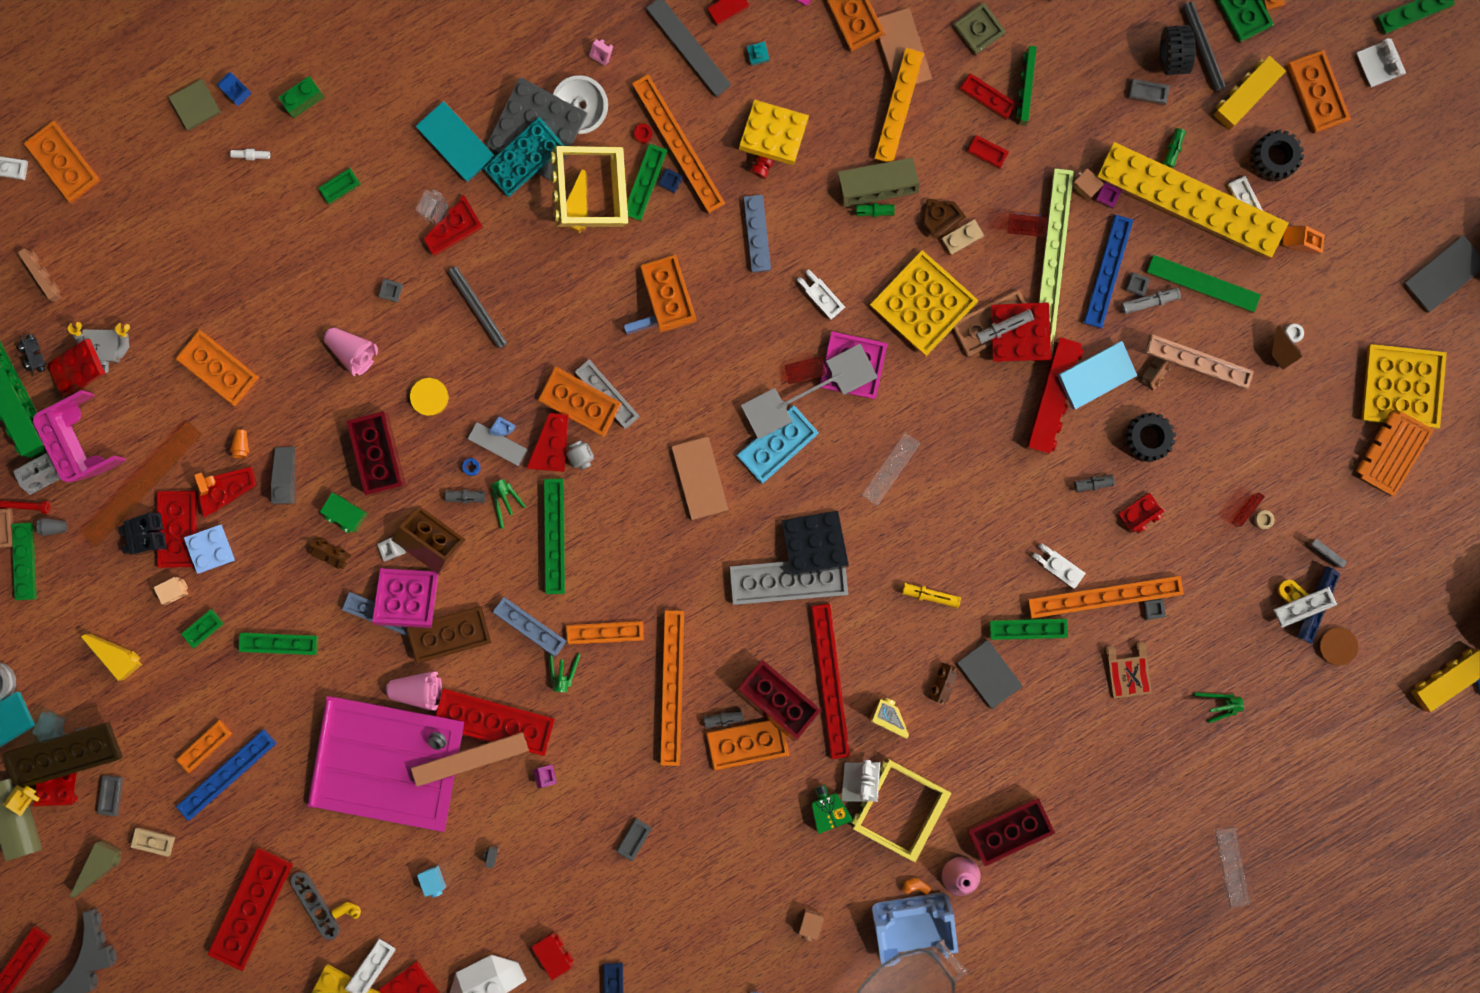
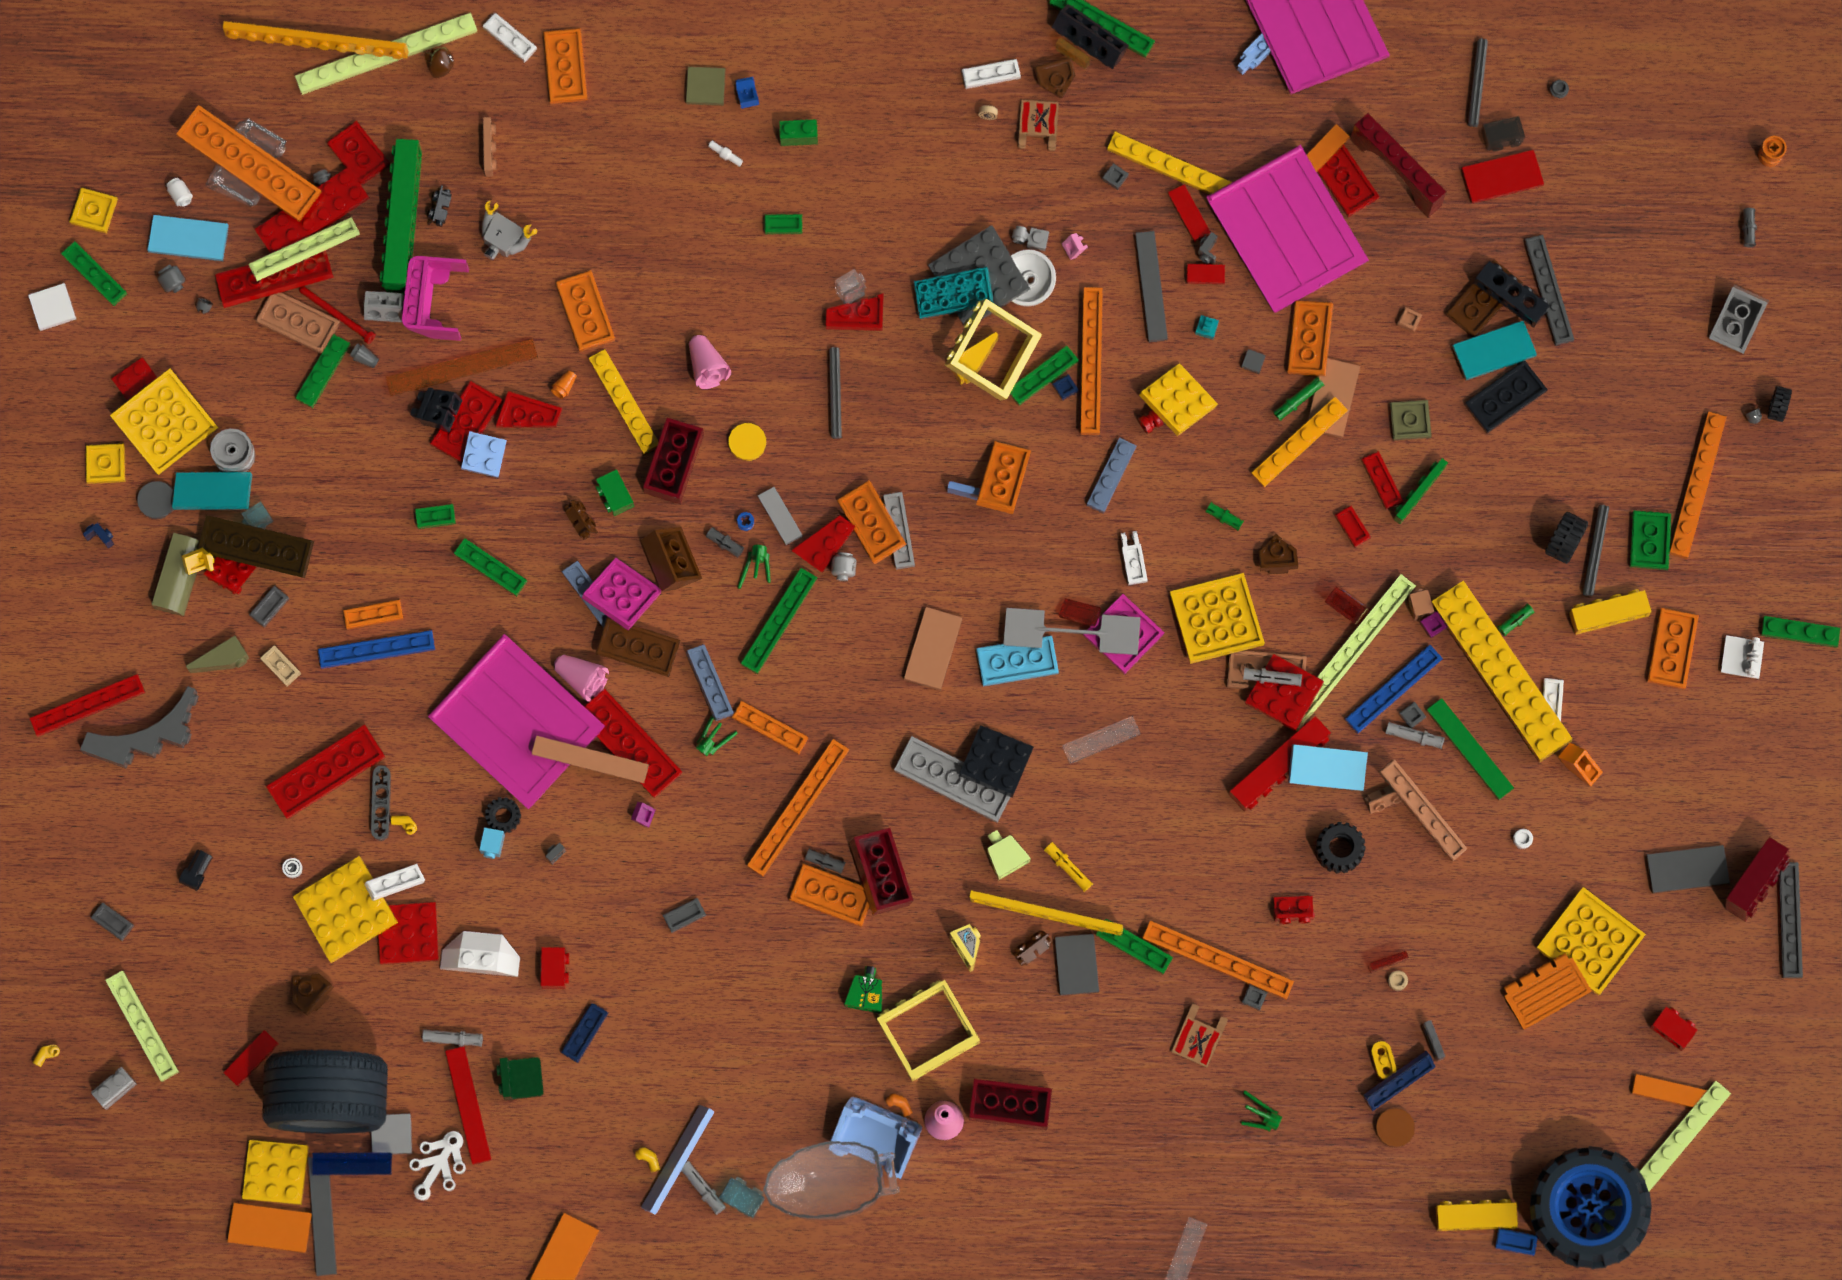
camera: 30 degrees right, 10 degrees down
(76, 368) = (469, 240): red plate -> none
(116, 658) = (349, 498): yellow slope -> none
(171, 590) = (430, 469): light nougat brick -> none
(202, 483) = (513, 396): orange tile -> none
(283, 476) = (583, 433): dark grey slope -> none
(301, 427) = (624, 401): none -> yellow plate
(390, 549) = (633, 548): white slope -> none
(391, 290) = (771, 335): dark grey plate -> none
(437, 740) = (573, 726): dark grey plate -> none
(437, 847) = (500, 804): none -> black tyre
(455, 141) = (904, 246): teal tile -> none
(502, 427) = (792, 504): medium blue tile -> none
(564, 65) = (1036, 239): none -> light grey plate
(642, 133) = (1067, 334): red tile -> none
(811, 925) = (789, 1079): nougat brick -> none
(816, 59) = (1253, 361): none -> dark grey tile
(830, 681) = (936, 886): red tile -> none
(861, 781) = (909, 983): white hinge -> none
(872, 619) = (1005, 855): none -> yellowish green torso
(874, 69) = (1292, 403): none -> green pin
(878, 182) = (1241, 494): olive brick -> none
(939, 648) = (1046, 913): none -> yellow tile
(962, 237) = (1285, 584): tan plate -> none
(1060, 567) = (1195, 911): white hinge -> none
(1094, 483) = (1268, 858): dark grey pin -> none
(1148, 92) = (1524, 560): flat silver tile -> none
(1284, 349) = (1504, 844): reddish brown slope -> none
(1290, 149) = (1606, 664): black tyre -> none
(1305, 607) = (1384, 1072): white tile -> none

